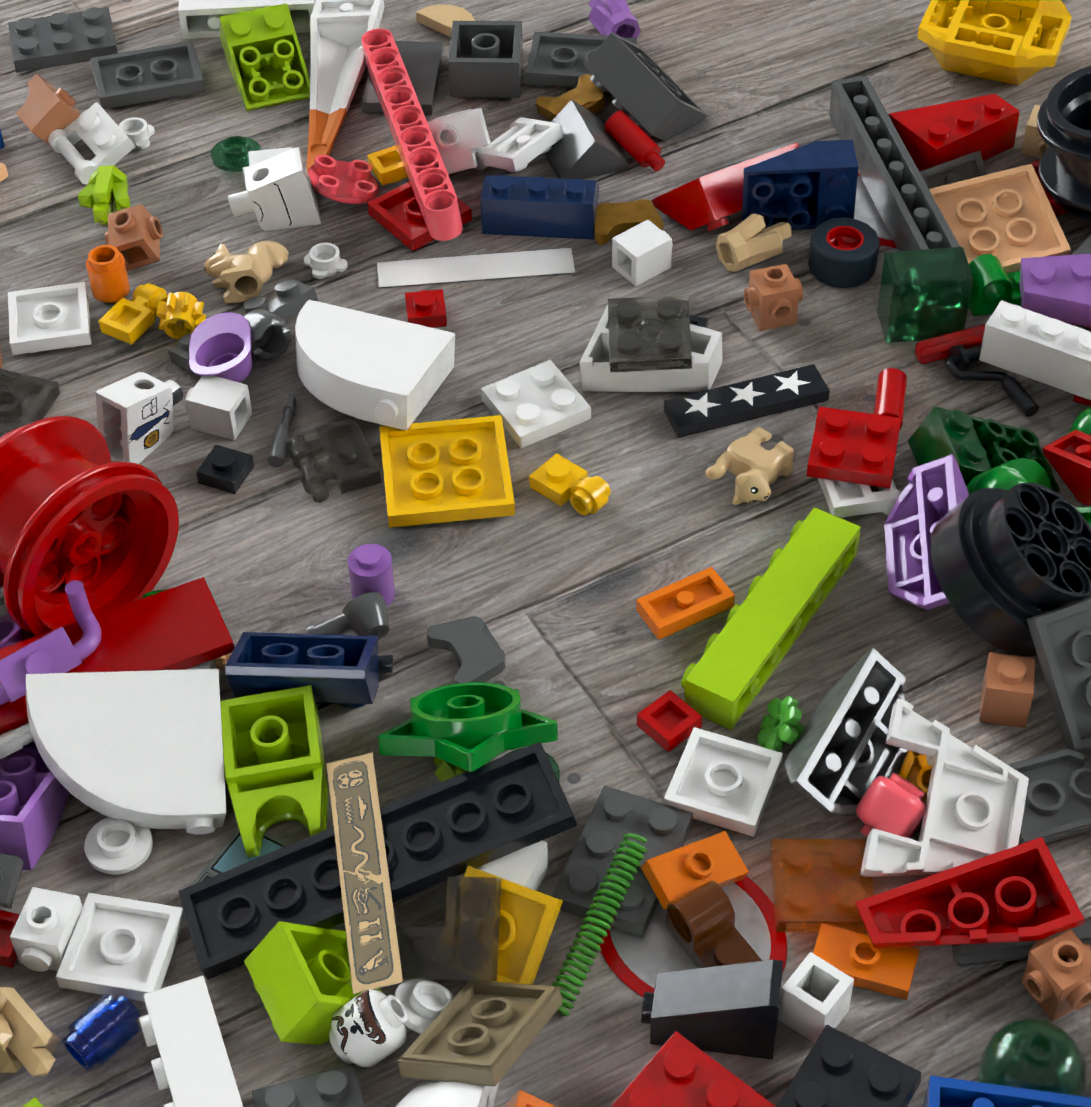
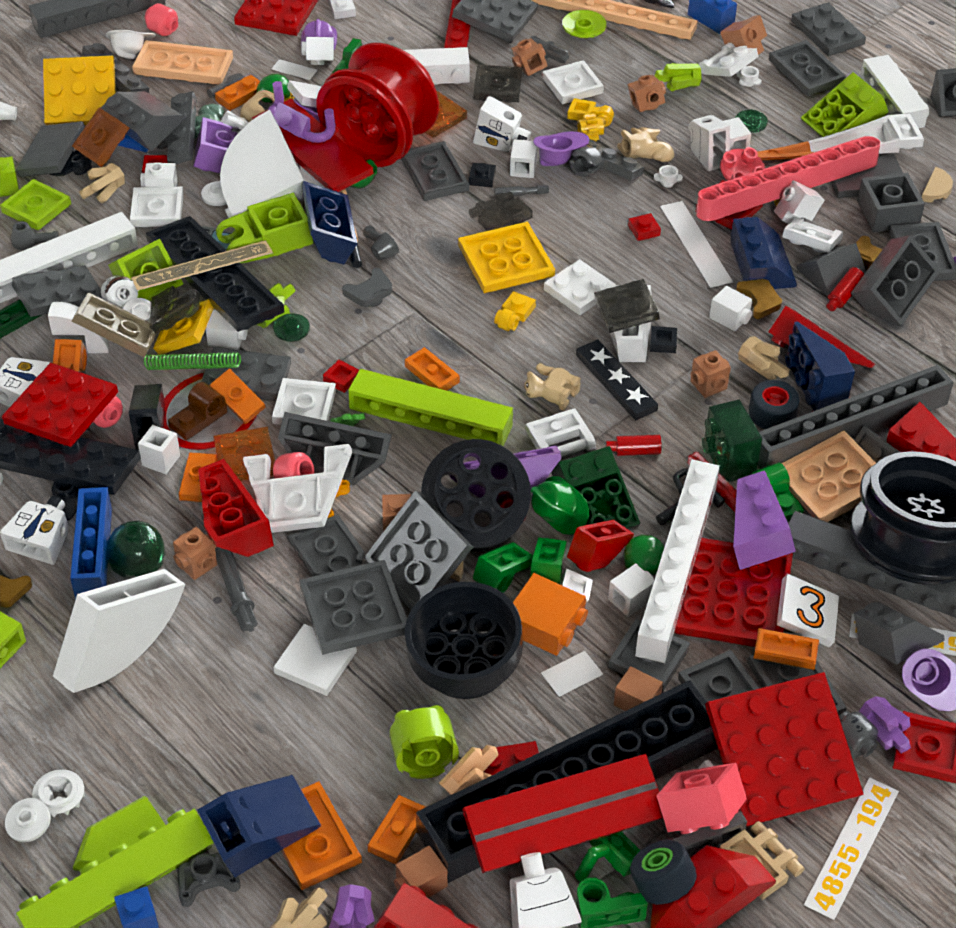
camera: 75 degrees right, 0 degrees up
(102, 1030) = (105, 206): clear blue brick -> none
(107, 274) = (609, 90): orange brick -> none
(212, 526) = (435, 171): none -> dark grey tile
(370, 362) = (574, 205): white brick -> none
(371, 571) = (410, 240): medium lavender brick -> none
(467, 725) = (305, 287): green plate -> none
(854, 447) = (577, 424): red plate -> none

